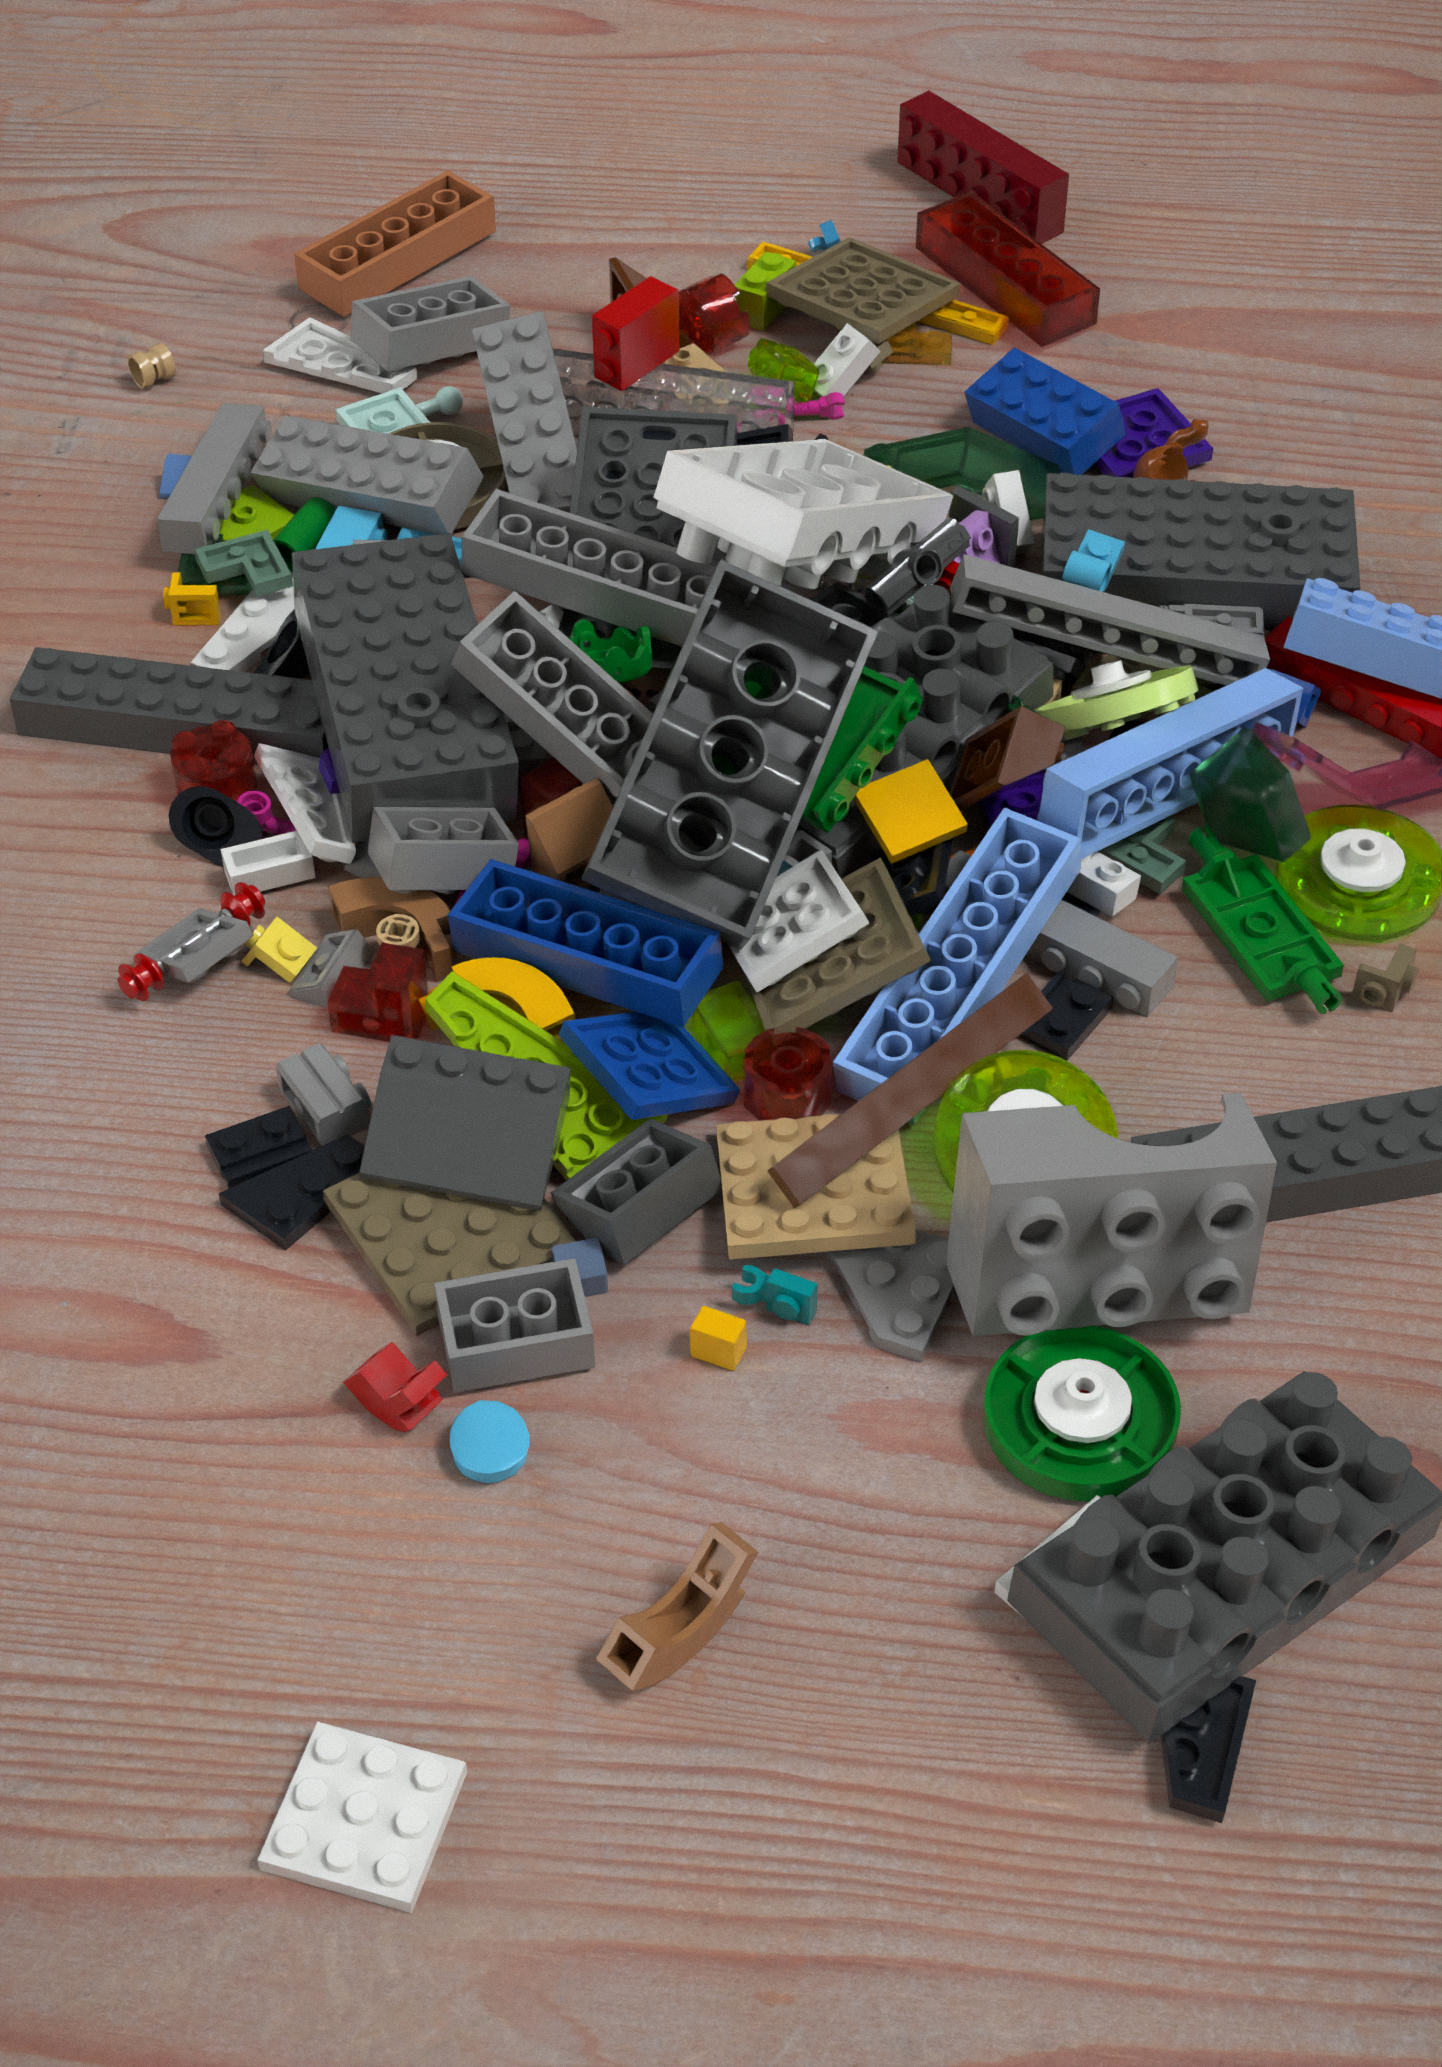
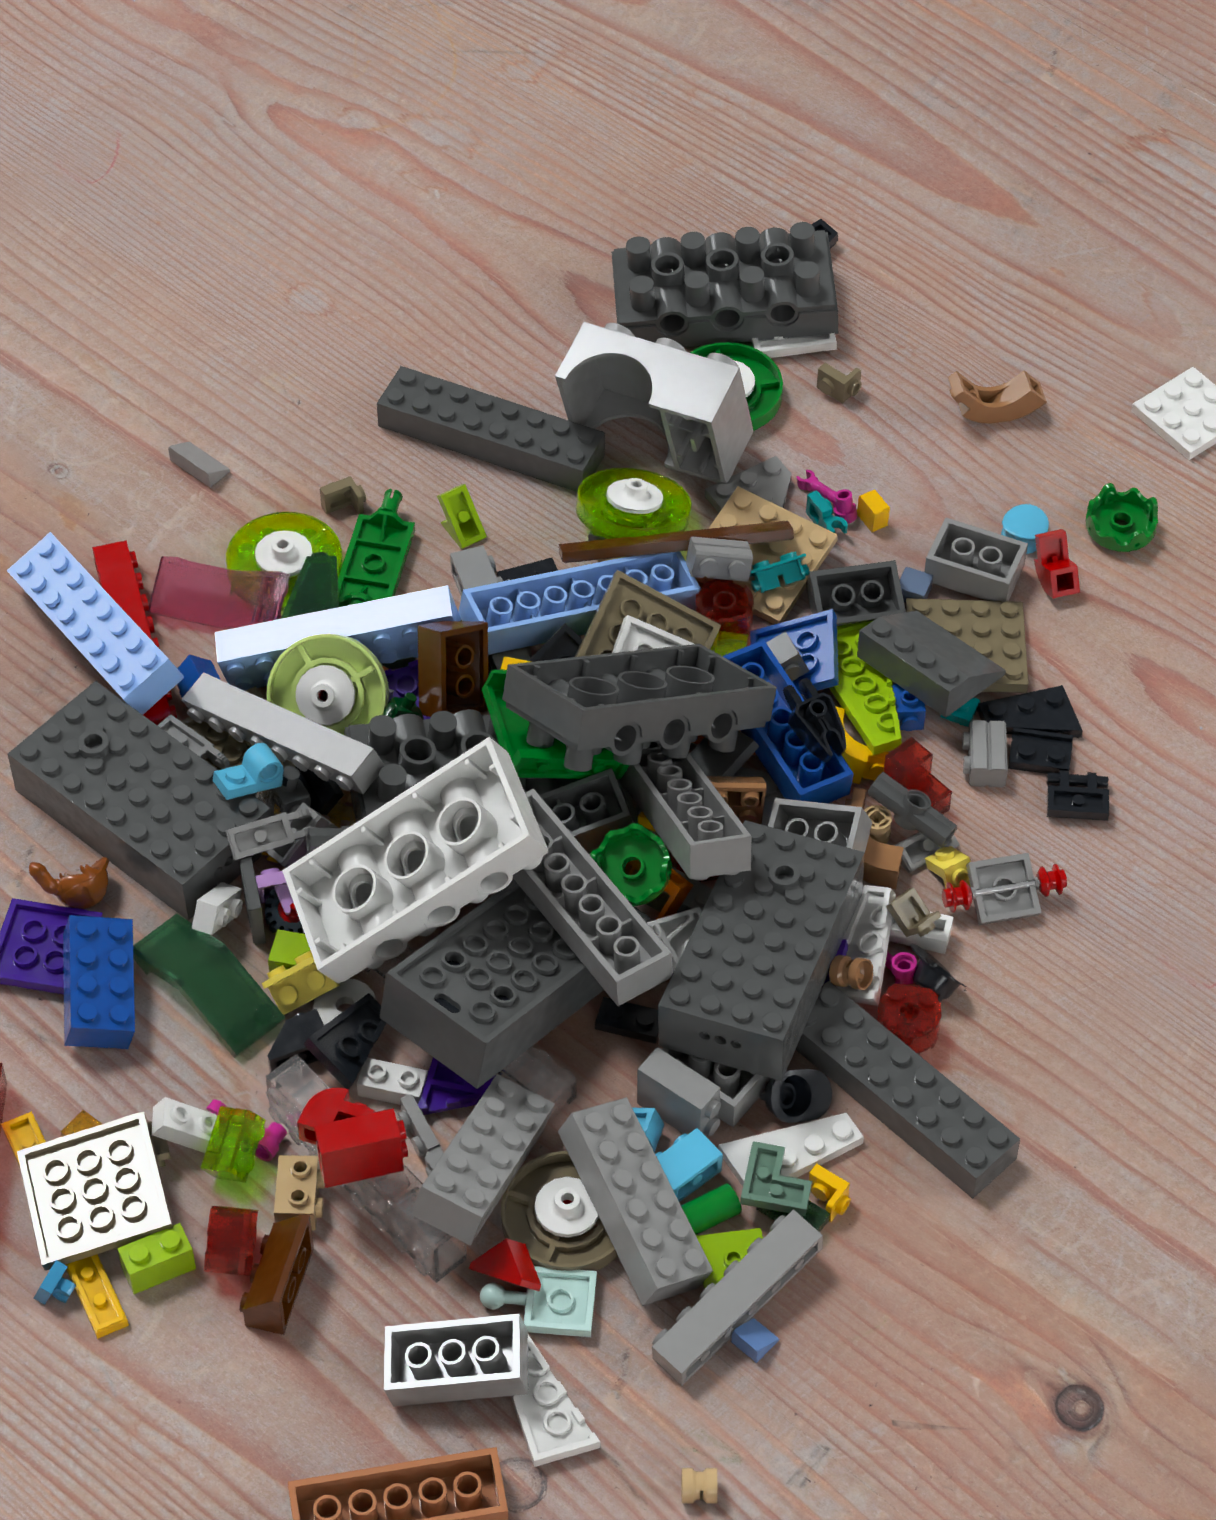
camera: 145 degrees left, 5 degrees up
(168, 1101) = (1078, 801): none -> black plate
(271, 834) = (912, 914): none -> dark tan bracket
(299, 746) = (846, 972): none -> medium nougat wheel
(330, 941) = (912, 810): none -> dark grey piece
(344, 1500) = (1128, 506): none -> green plate
(445, 400) = (510, 1263): none -> red slope
(526, 906) = (815, 721): none -> black hinge
(646, 1022) = (788, 656): none -> brick
(690, 366) = (326, 1107): none -> red brick
(759, 1143) = (789, 567): none -> teal hinge
(766, 1321) = (841, 500): none -> dark pink brick
(833, 1082) = (719, 558): none -> light grey brick
(936, 1513) = (837, 384): none -> dark tan bracket
(1017, 535) = (265, 834): none -> light grey hinge
(1224, 1028) = (461, 516): none -> lime slope

